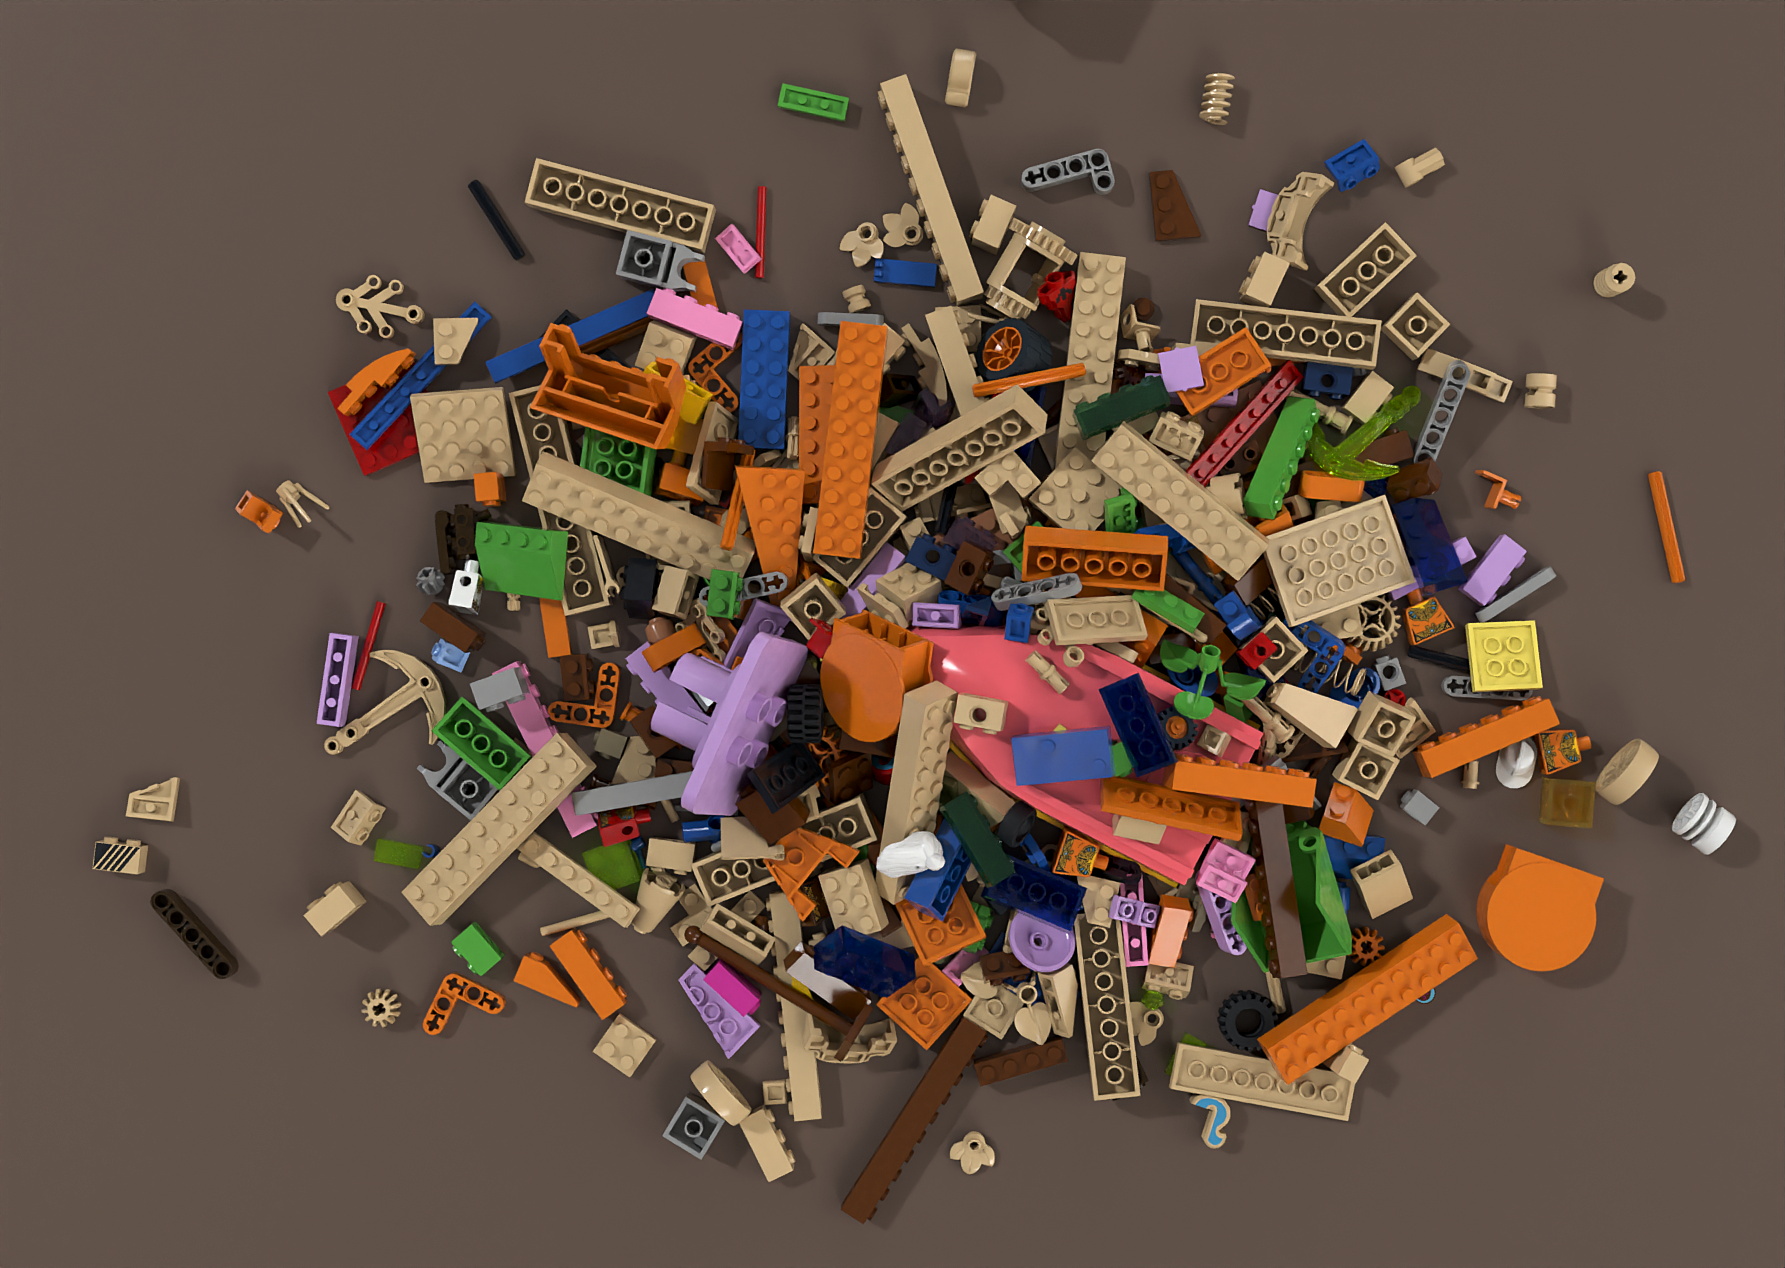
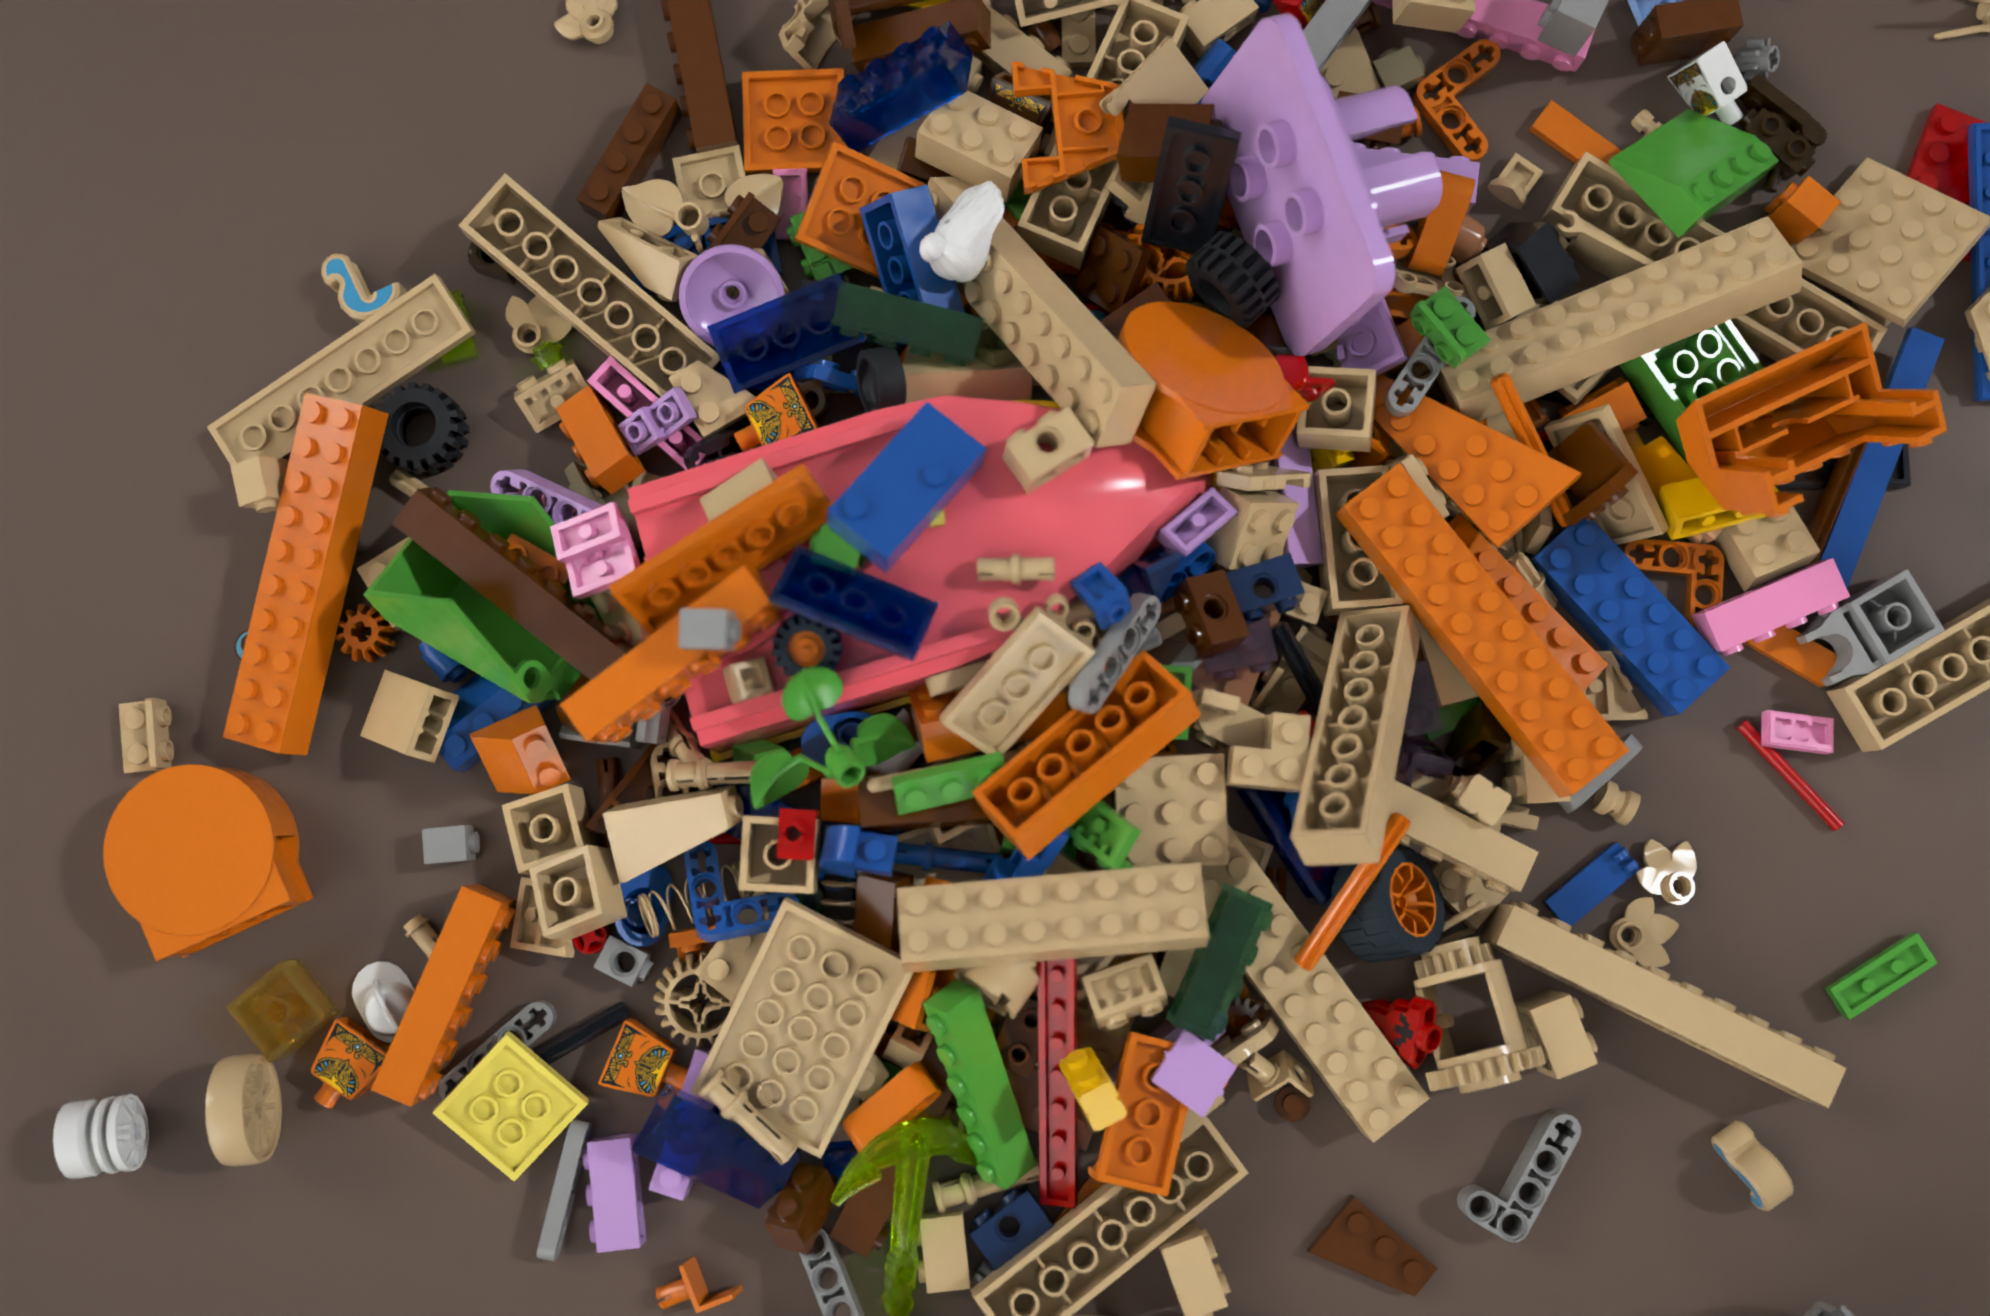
camera: 135 degrees right, 5 degrees down
(576, 677) = (1500, 109): reddish brown bracket -> none
(928, 365) = (1476, 798): none -> tan brick
(1216, 774) = (708, 629): none -> light grey brick
(1234, 407) = (1092, 1088): none -> yellow brick
(1401, 555) = (735, 1106): none -> tan pin
(1514, 997) = (145, 735): none -> tan bracket

